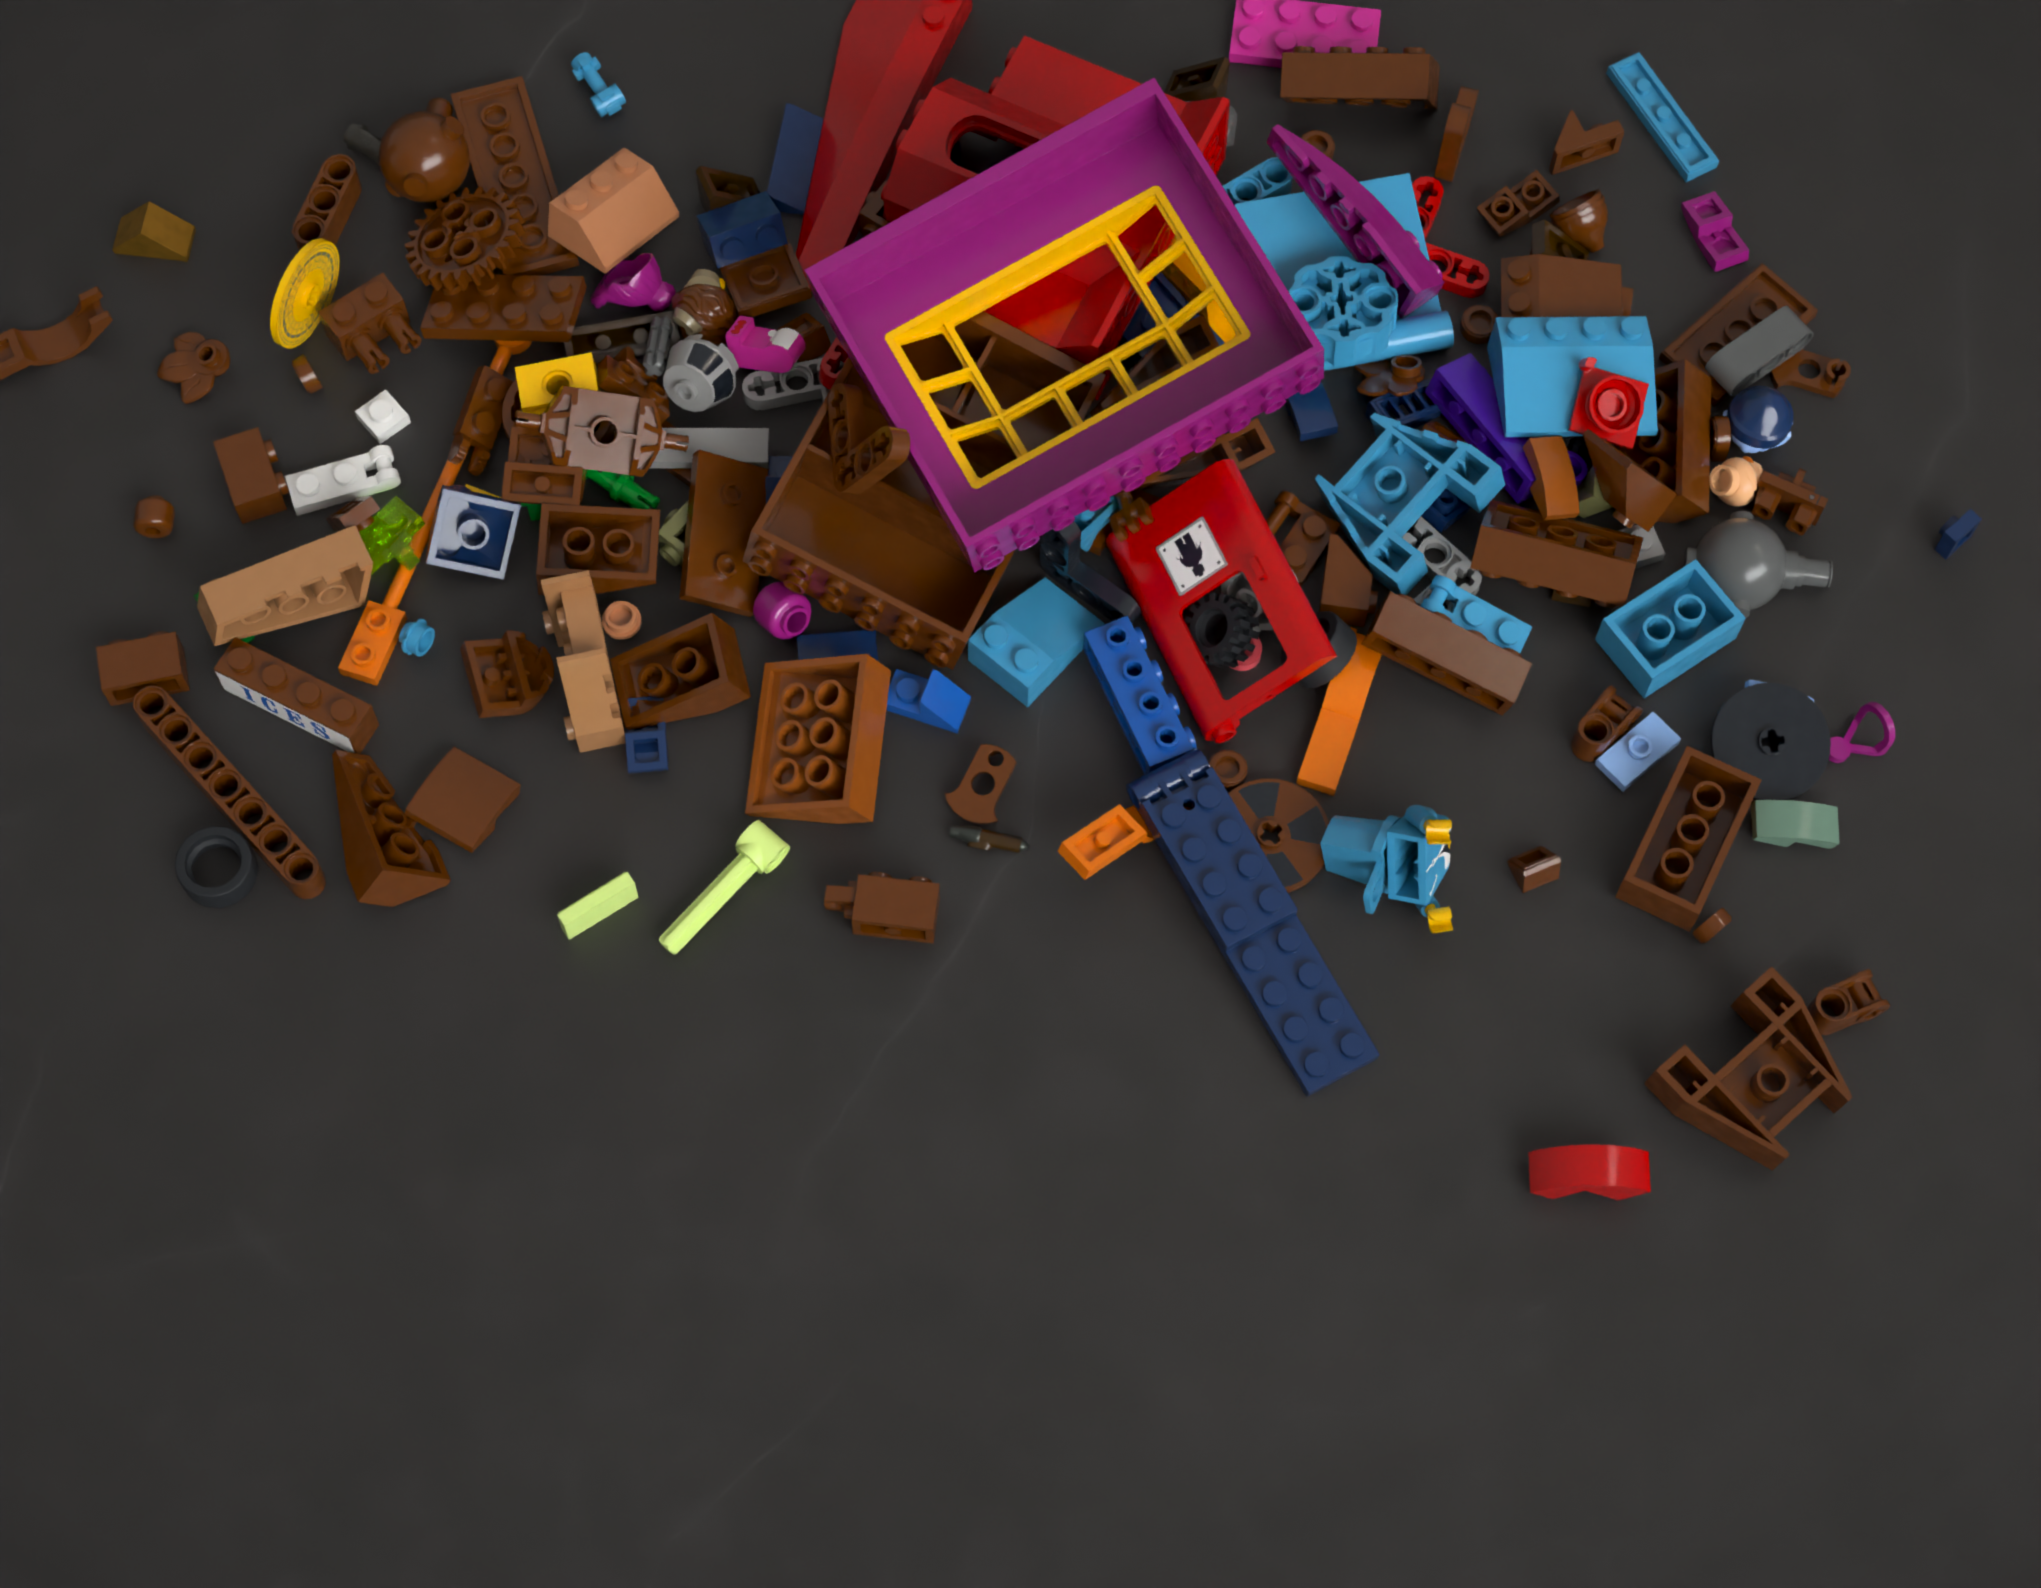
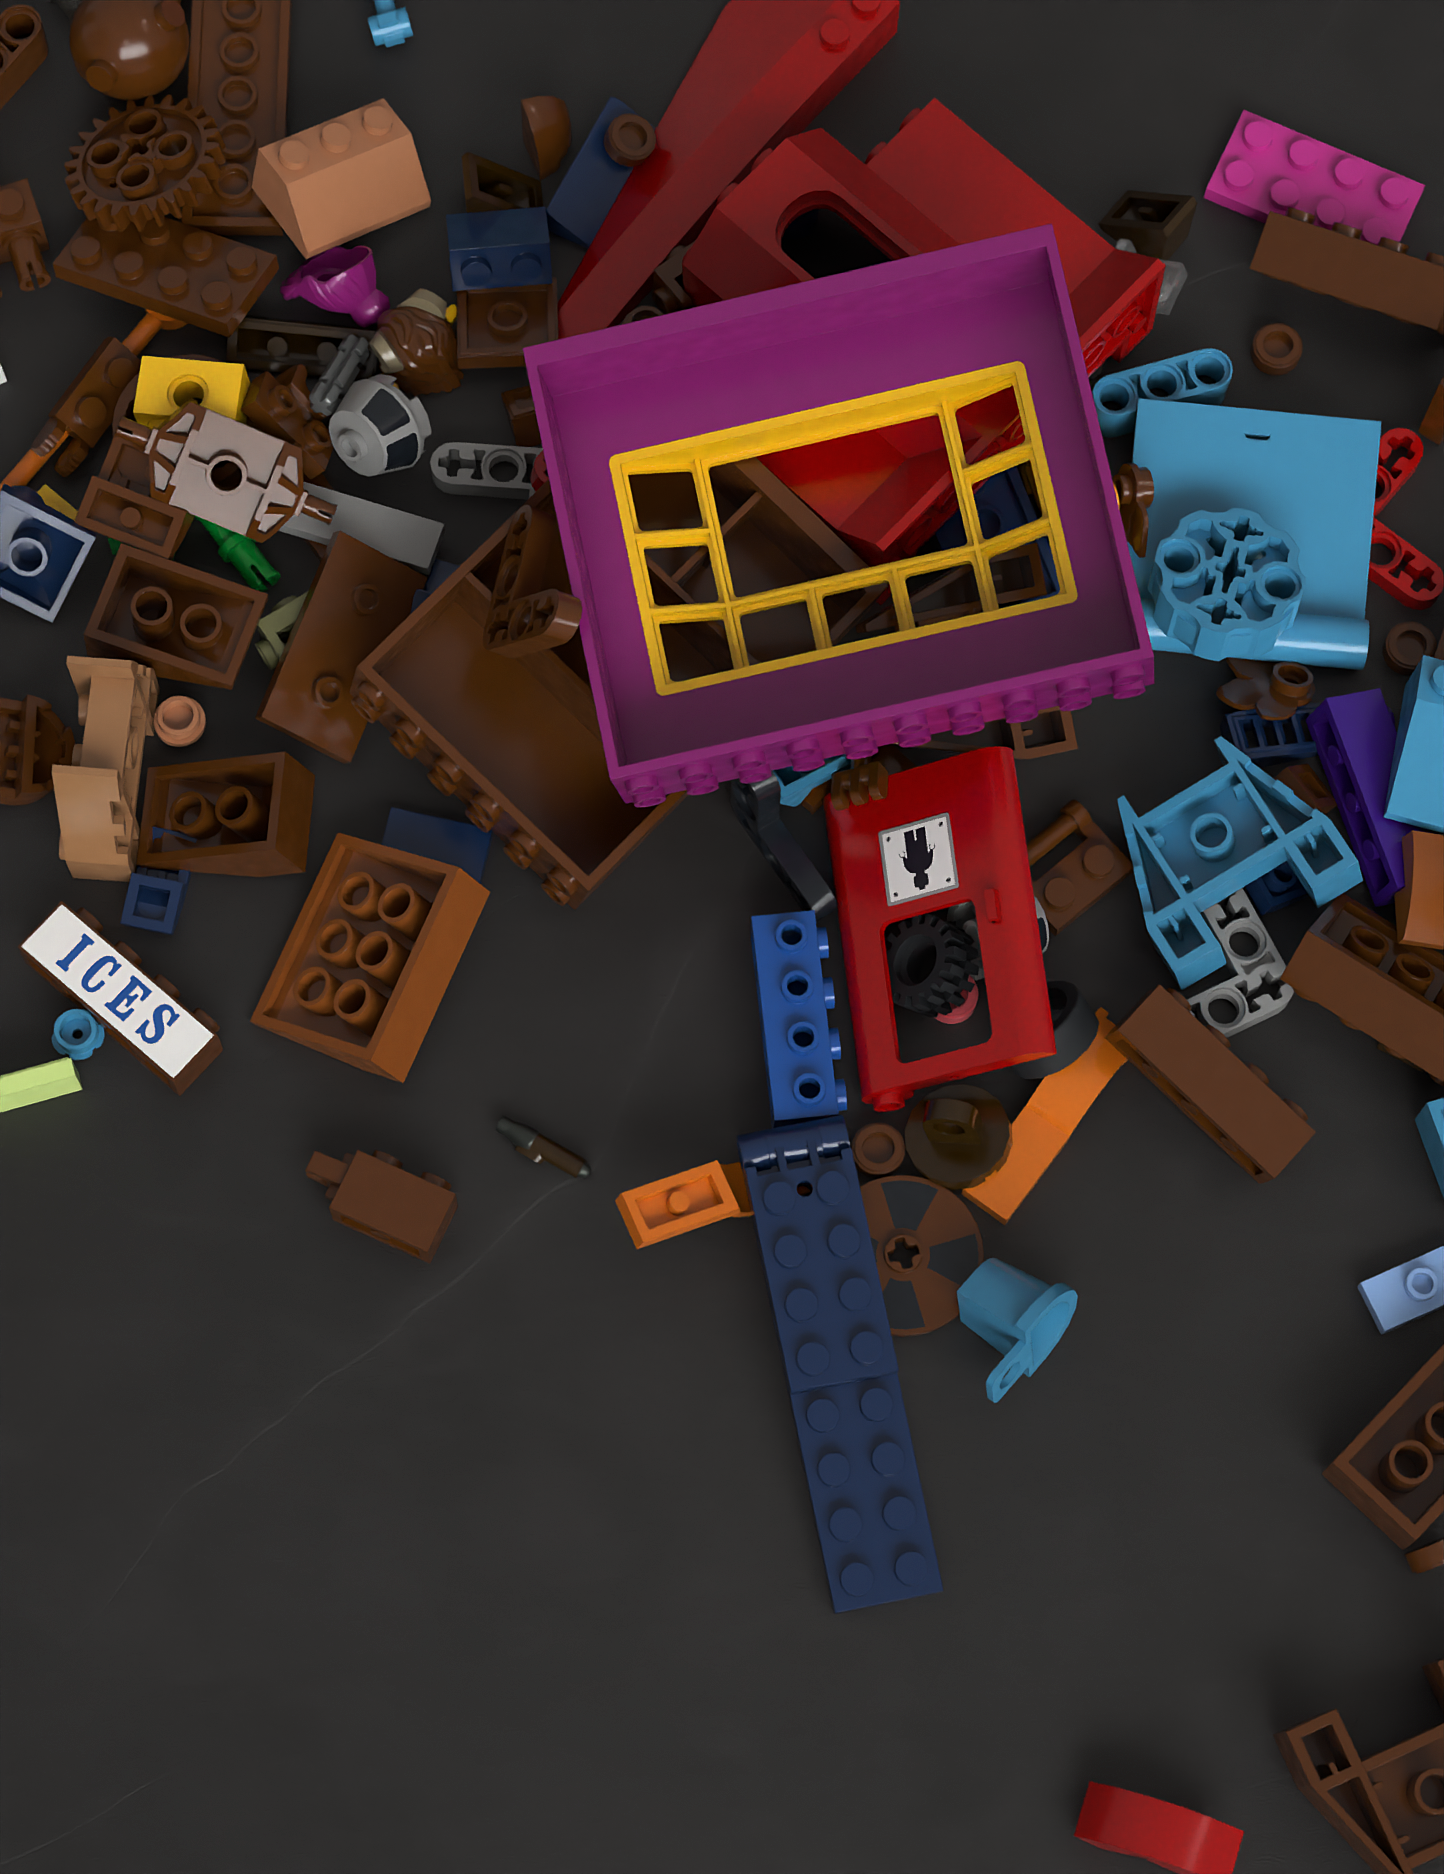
camera: 15 degrees right, 5 degrees up
(620, 848) = (70, 1022): none -> dark azure plate
(647, 822) = (122, 998): none -> brick
(746, 141) = (546, 132): none -> reddish brown brick
(757, 851) = (247, 1077): yellowish green axle -> none
(764, 347) = (473, 413): dark pink leg -> none
(781, 611) = (380, 772): magenta head -> none
(809, 130) = (629, 140): none -> reddish brown tile
(929, 700) = (528, 941): blue slope -> none
(976, 807) = (535, 1096): reddish brown piece -> none
(1031, 640) = (688, 901): dark azure slope -> none
(1281, 742) = (958, 1136): none -> dark brown tile
(1312, 414) = (1152, 712): dark blue slope -> none
(1346, 585) = (1111, 953): reddish brown slope -> none
(1360, 221) = (1294, 474): magenta wedge -> none
(1418, 861) = (1077, 1350): dark azure torso -> none
(1477, 614) = (1267, 1044): dark azure plate -> none
(1535, 868) = (1230, 1402): reddish brown slope -> none
(1608, 721) = (1392, 1233): reddish brown piece -> none

